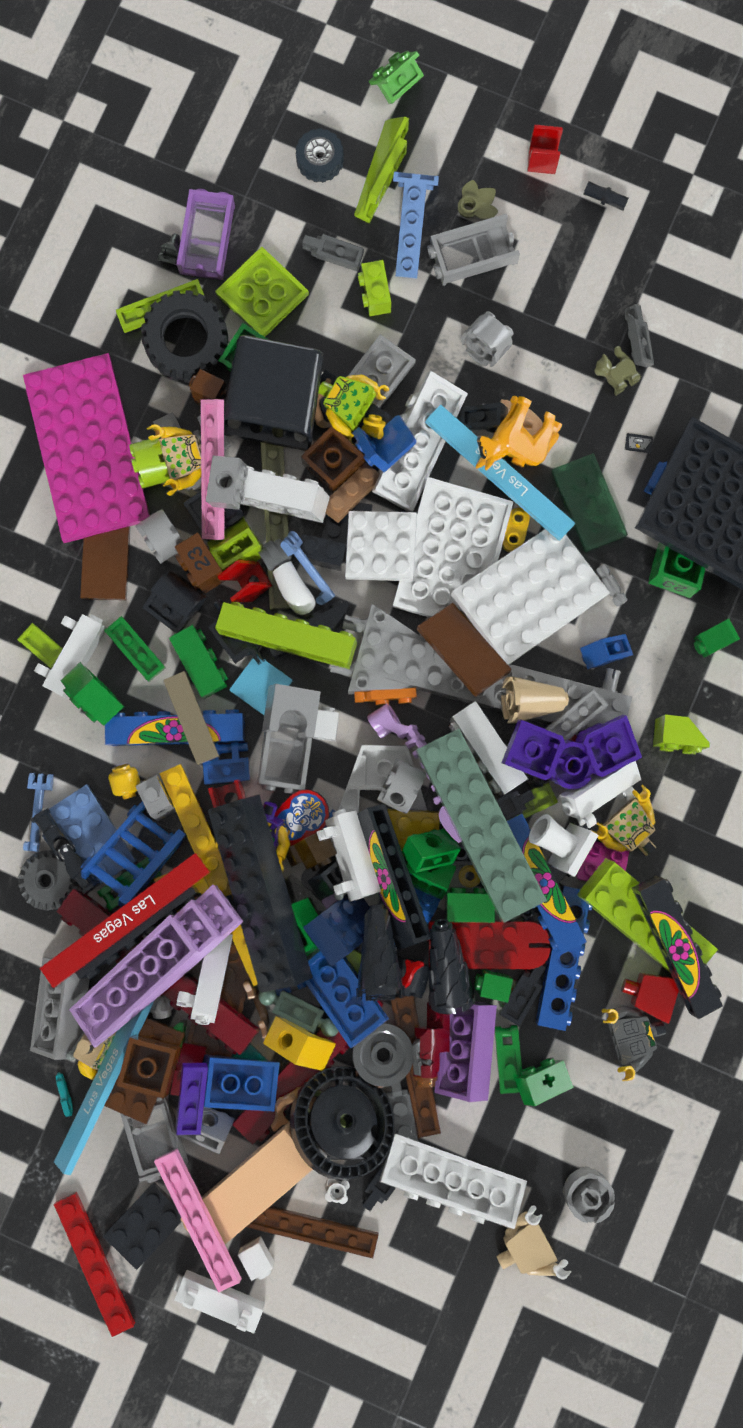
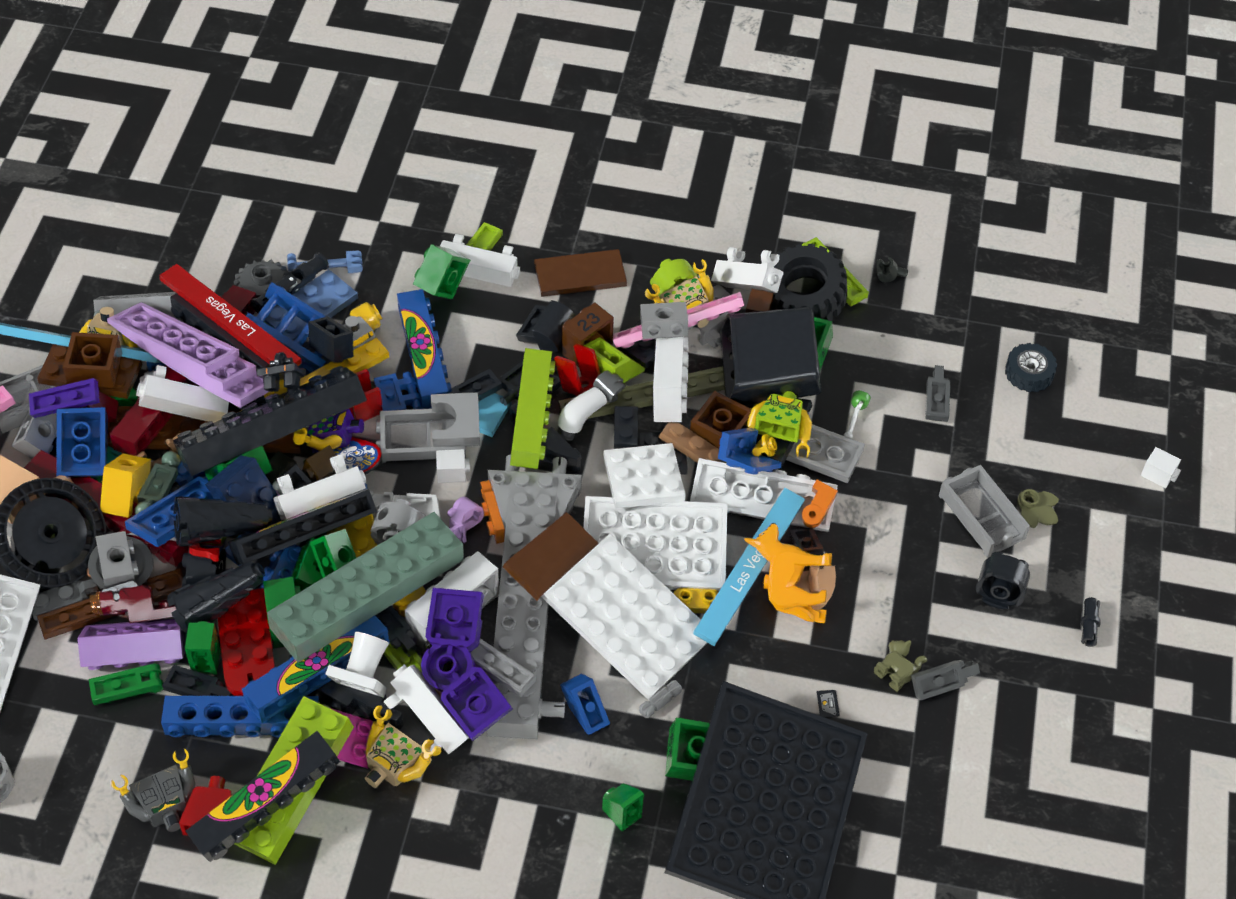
camera: 75 degrees right, 30 degrees down
(66, 1100) = (61, 327): teal piece -> none
(86, 447) = (686, 230): dark pink plate -> none
(135, 649) = (494, 307): green plate -> none
(160, 535) = (610, 296): light grey brick -> none
(164, 819) = (331, 339): none -> black brick
(167, 389) = (748, 275): none -> white brick
(191, 718) = (434, 350): dark tan tile -> none
(199, 661) = (493, 352): green brick -> none
(205, 234) = (916, 291): door -> none
(214, 874) = (281, 369): none -> black hips
(244, 689) = (483, 384): none -> black hinge
(262, 292) = (874, 345): lime plate -> none
(291, 545) = (622, 395): medium blue hinge -> none
(326, 325) = (859, 401): none -> hinge
(376, 288) = (911, 432): lime brick -> none
(386, 161) = (1038, 424): lime wedge -> none
(397, 75) = (1138, 416): bright green bracket -> none
(403, 1063) = (110, 548): none -> light grey brick
(411, 220) = (993, 442): medium blue bracket -> none
(450, 393) = (816, 511): none -> orange leg
(459, 77) = (1161, 468): none -> white brick
(487, 339) = (889, 533): light grey brick -> none
(531, 699) = (510, 615): tan cone -> none
(543, 1082) = (104, 728): brick -> none
(544, 149) = (1123, 553): red piece -> none
(557, 255) = (1003, 580): none -> black brick
(589, 502) = (746, 658): clear green plate -> none
(678, 733) = (504, 780): lime slope -> none

